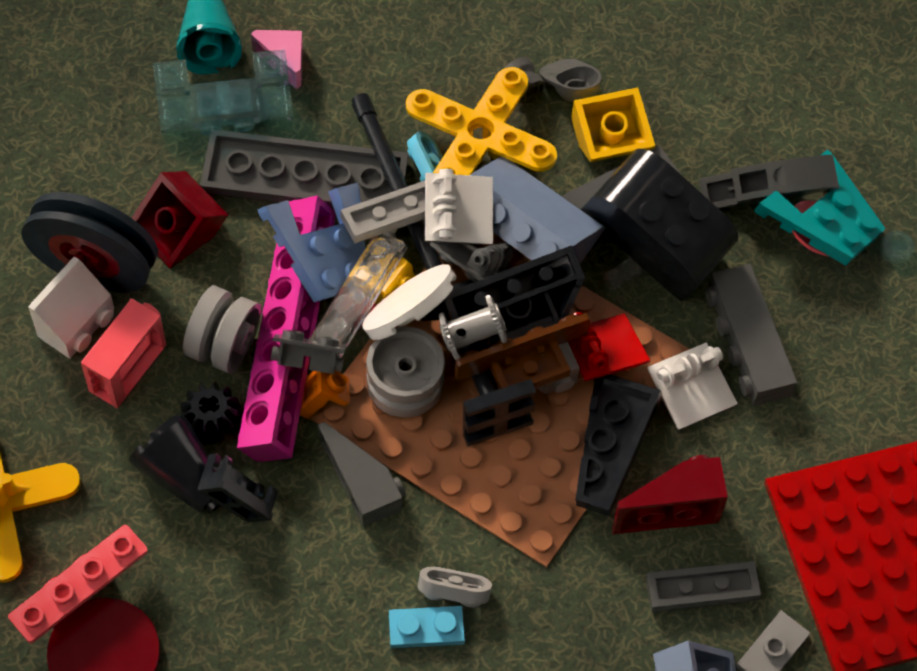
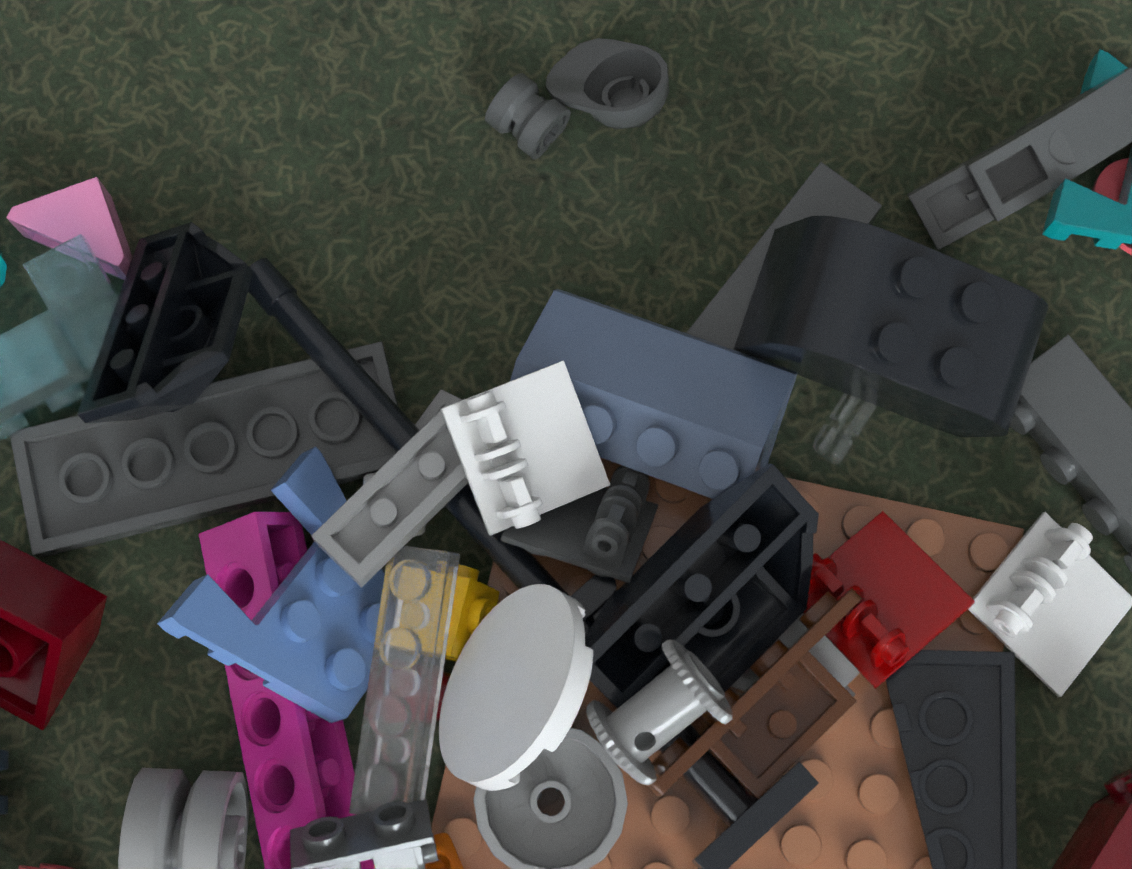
camera: 15 degrees left, 15 degrees up
(308, 105) = (167, 327): none -> black wedge
(424, 153) = (425, 343): medium azure plate -> none
(491, 115) = (501, 216): yellow piece -> none
(611, 125) = (725, 157): yellow slope -> none

